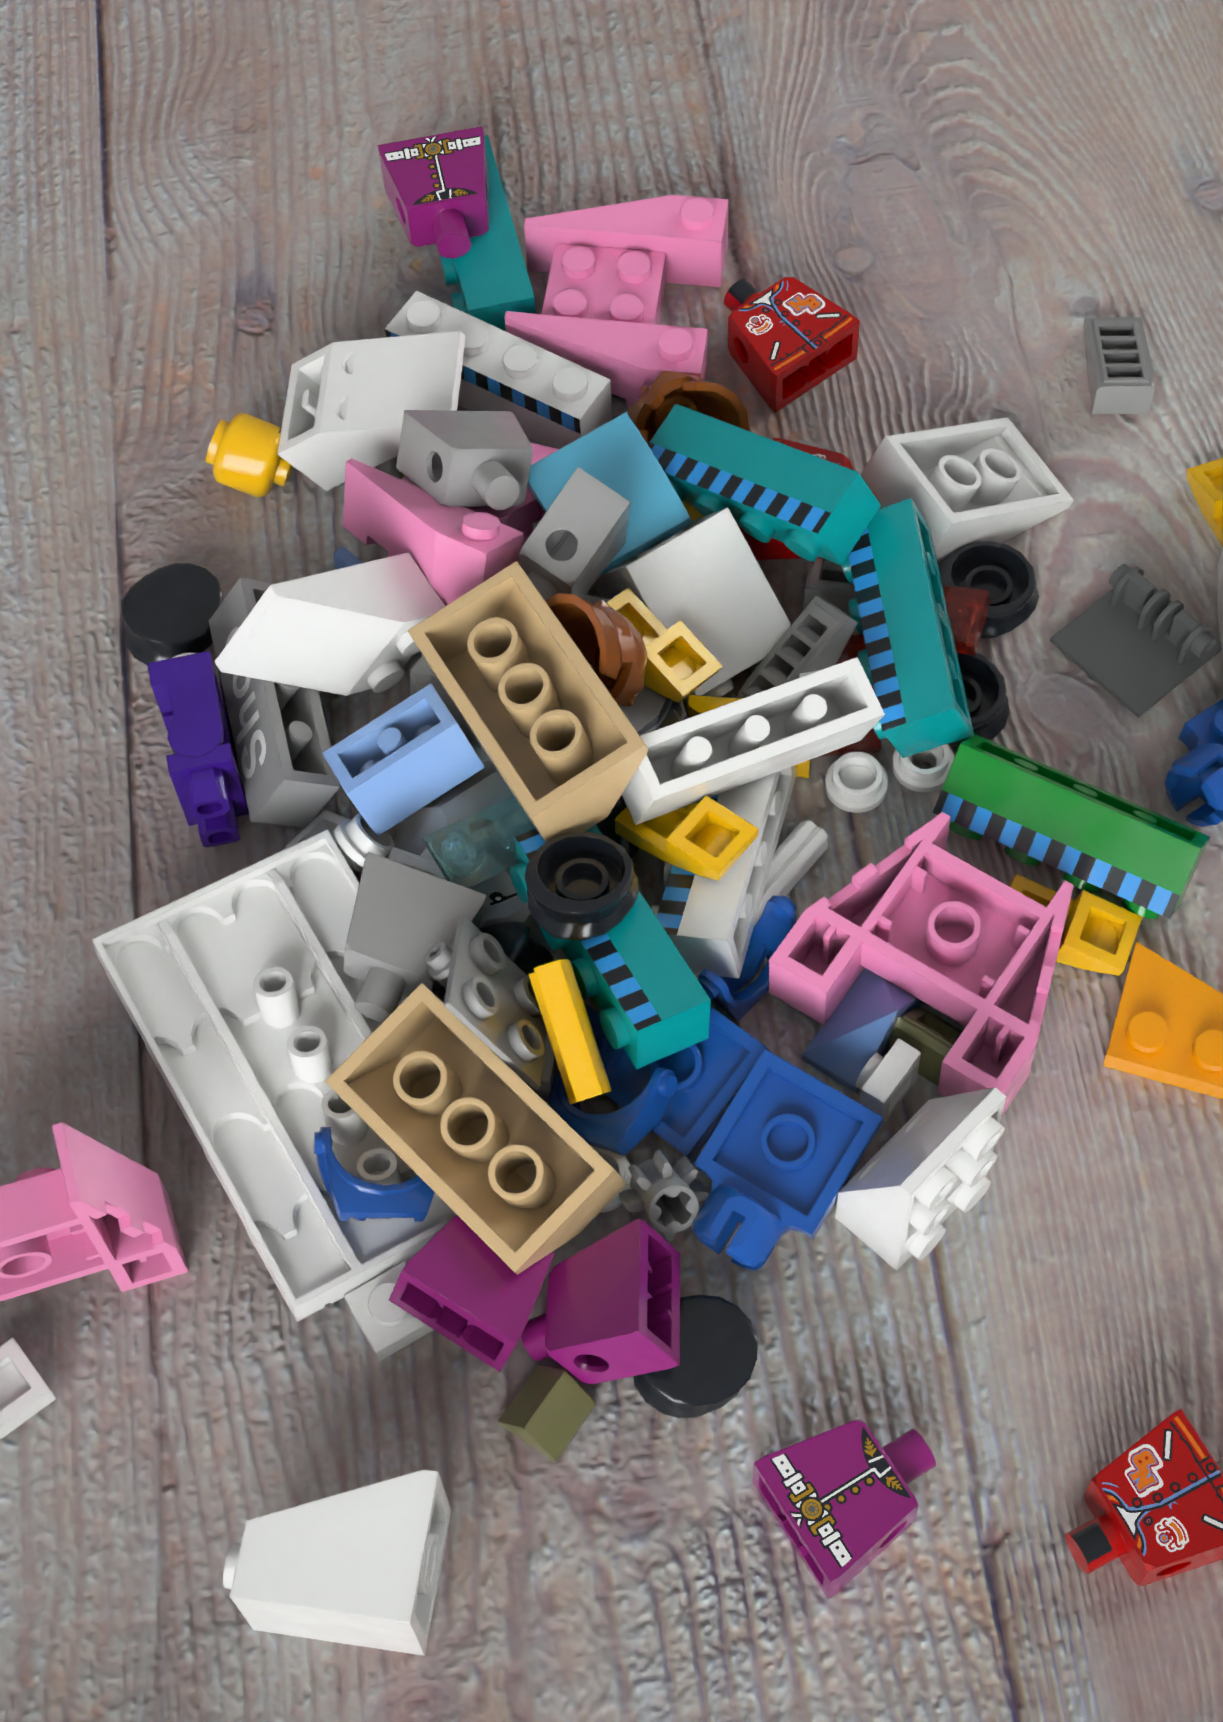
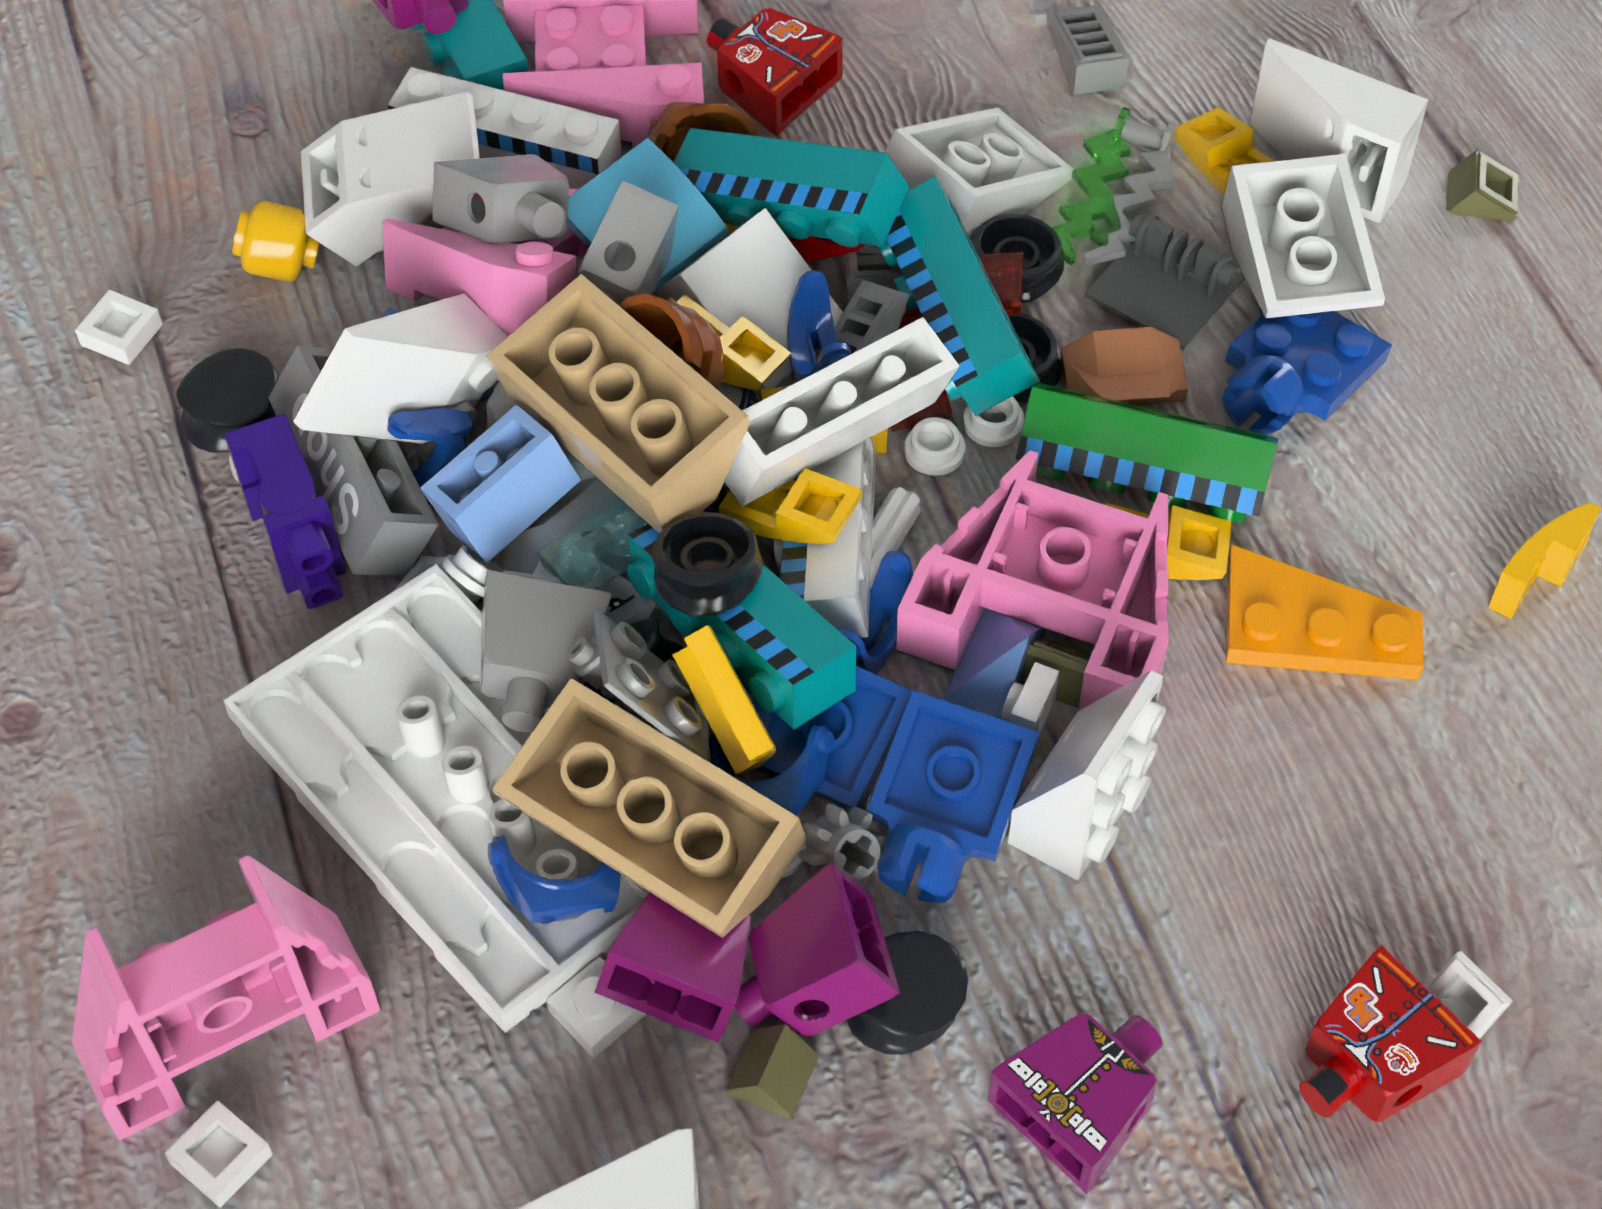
camera: 15 degrees left, 5 degrees down
(83, 521) = (119, 327): none -> white plate
(361, 686) = (441, 425): none -> blue helmet
(749, 640) = (812, 327): none -> blue helmet
(1072, 729) = (1126, 366): none -> nougat slope
(1092, 544) = (1106, 151): none -> piece

